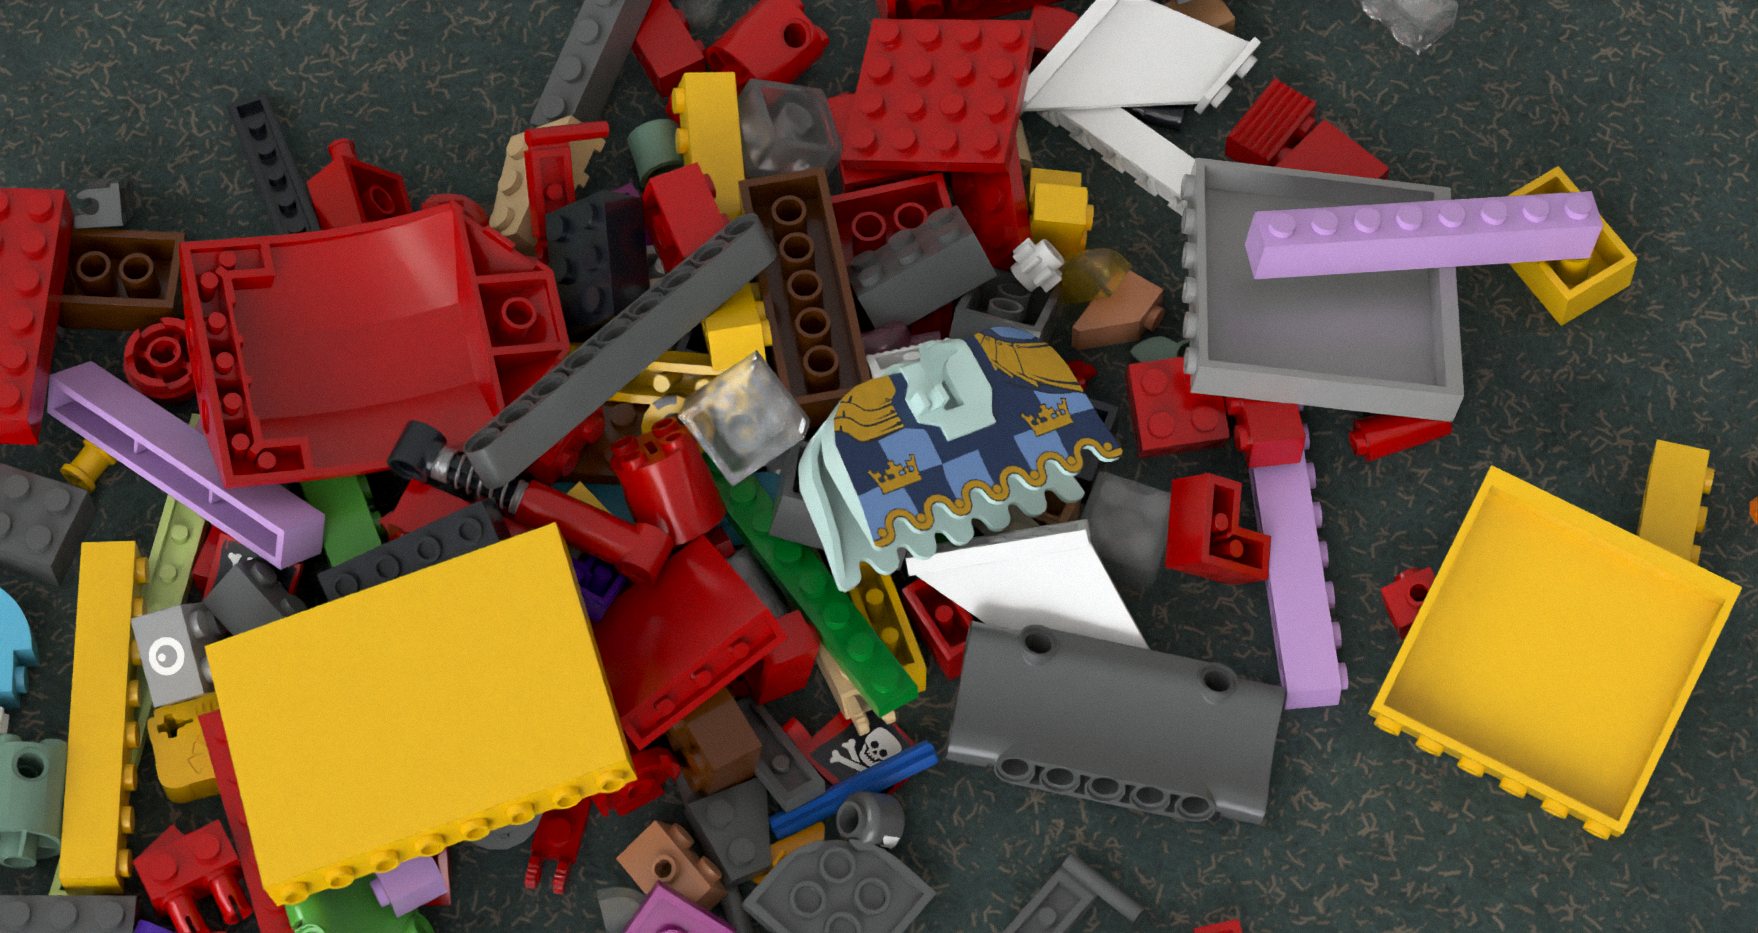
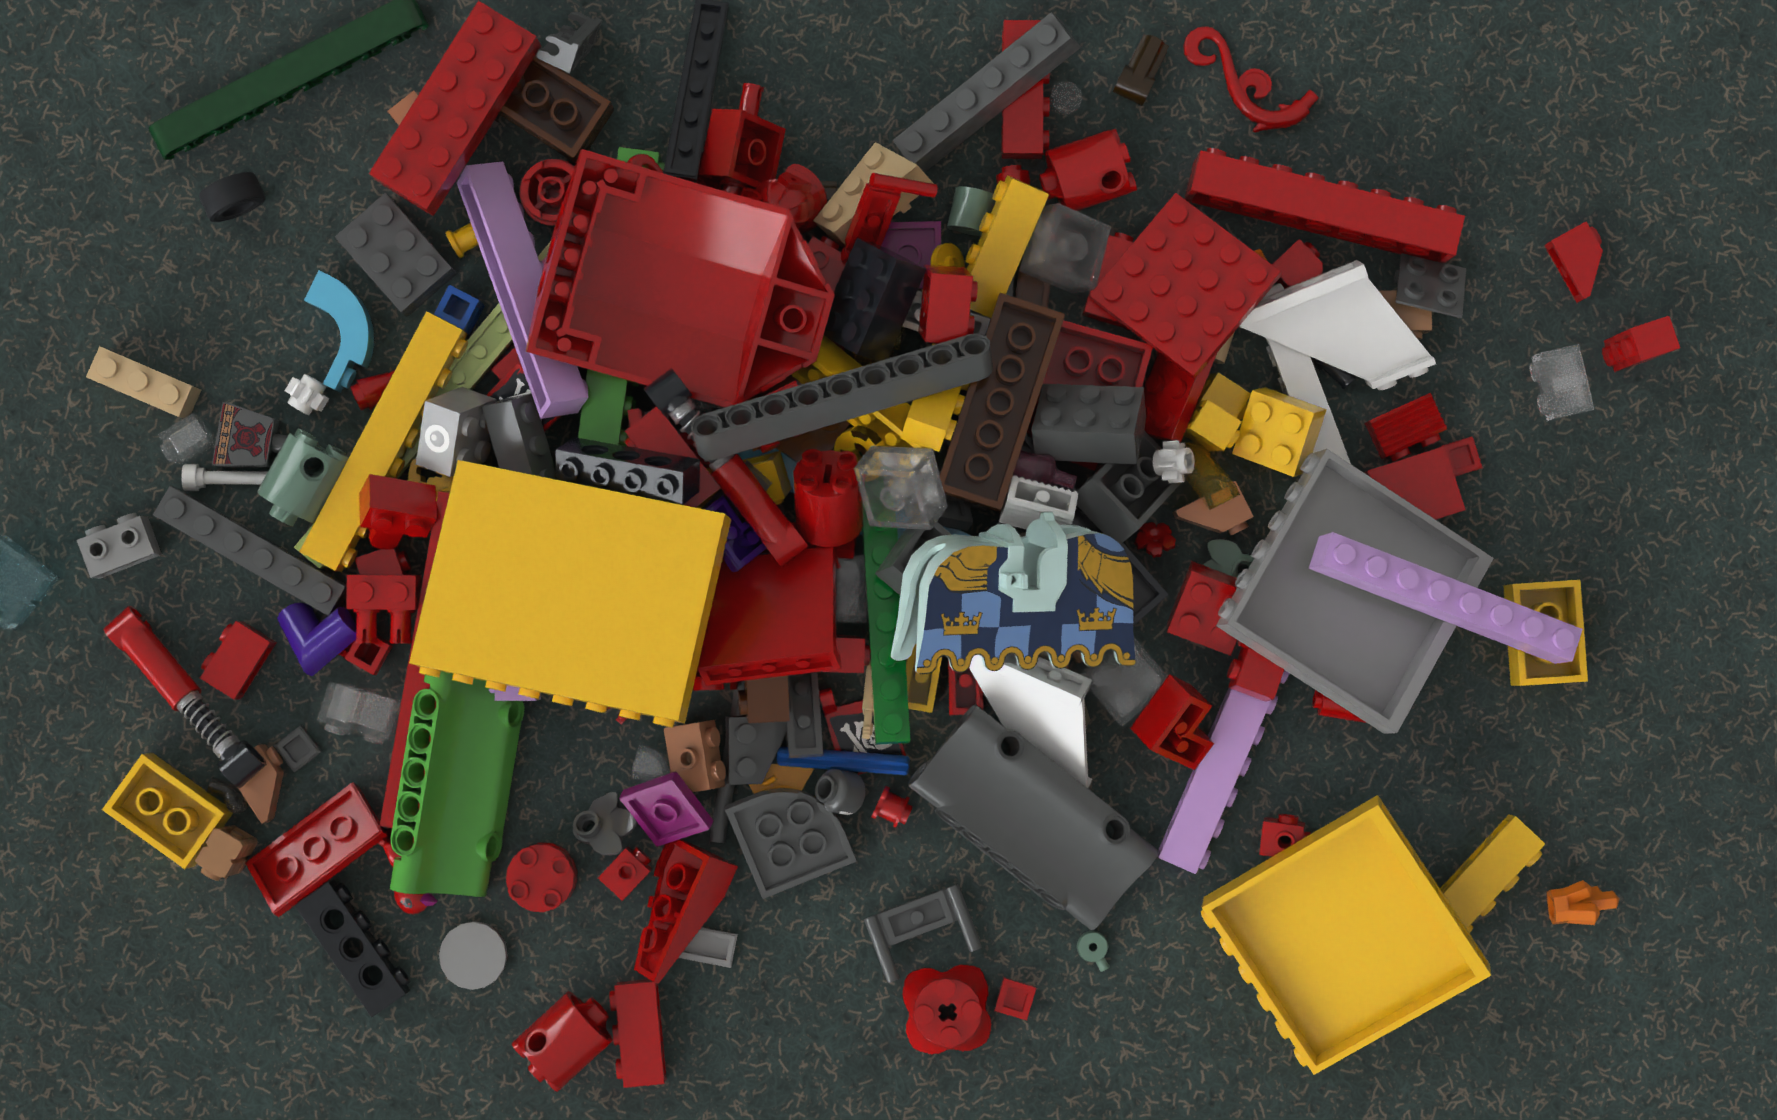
camera: 25 degrees right, 25 degrees up
(53, 682) = (370, 389): none -> red cone
(120, 524) = (459, 309): none -> blue brick
(154, 765) = (396, 508): none -> red brick
(943, 811) = (892, 807): none -> red brick
(1134, 189) = (1278, 431): none -> yellow brick
(1285, 852) = (1097, 955): none -> sand green piece
(1356, 127) = (1463, 456): none -> red tile

